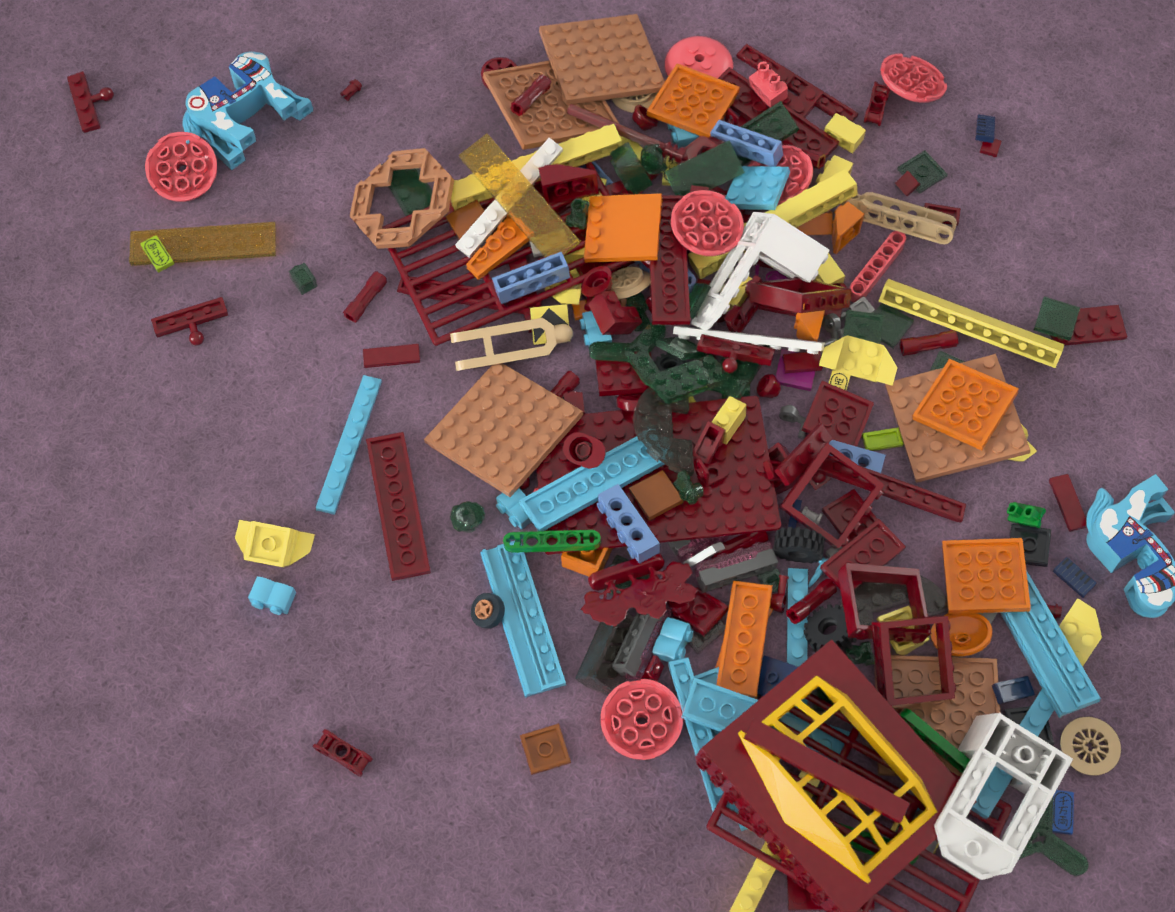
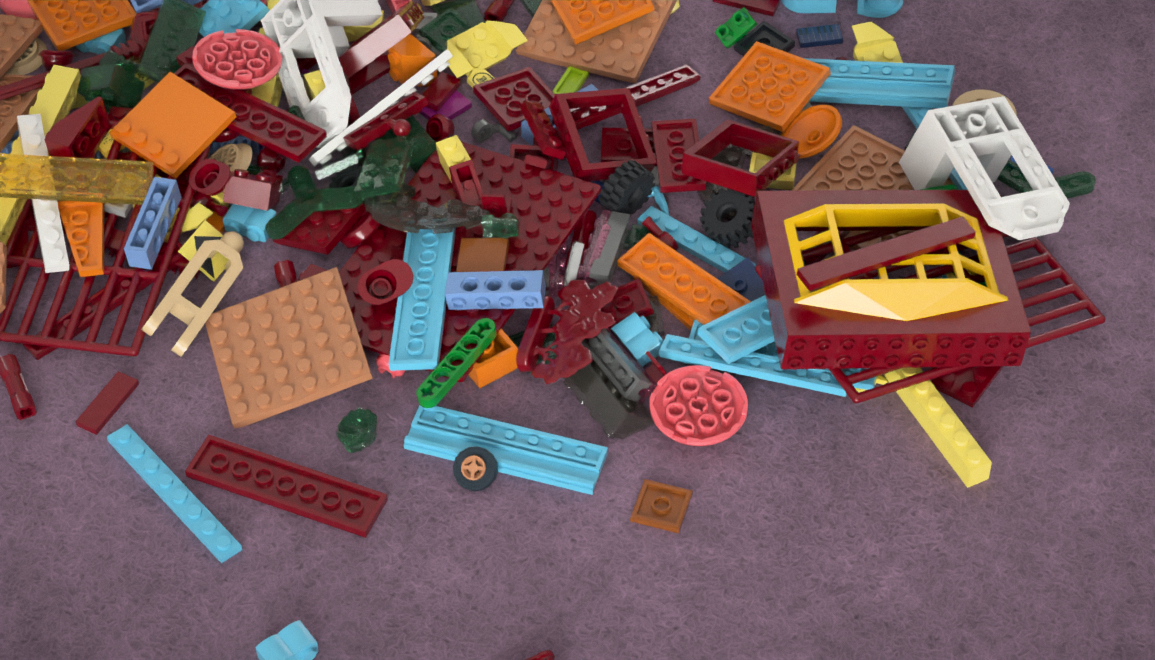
camera: 55 degrees left, 15 degrees down
(272, 543) = (221, 621): light yellow piece -> none
(464, 218) = (23, 248): dark orange tile -> none
(513, 509) = (384, 388): medium azure brick -> none
(578, 214) = (118, 148): clear green plate -> none
(806, 605) = (691, 222): dark red axle -> none
(883, 659) = (796, 175): dark red window -> none
(1013, 690) = (891, 131): dark blue tile -> none

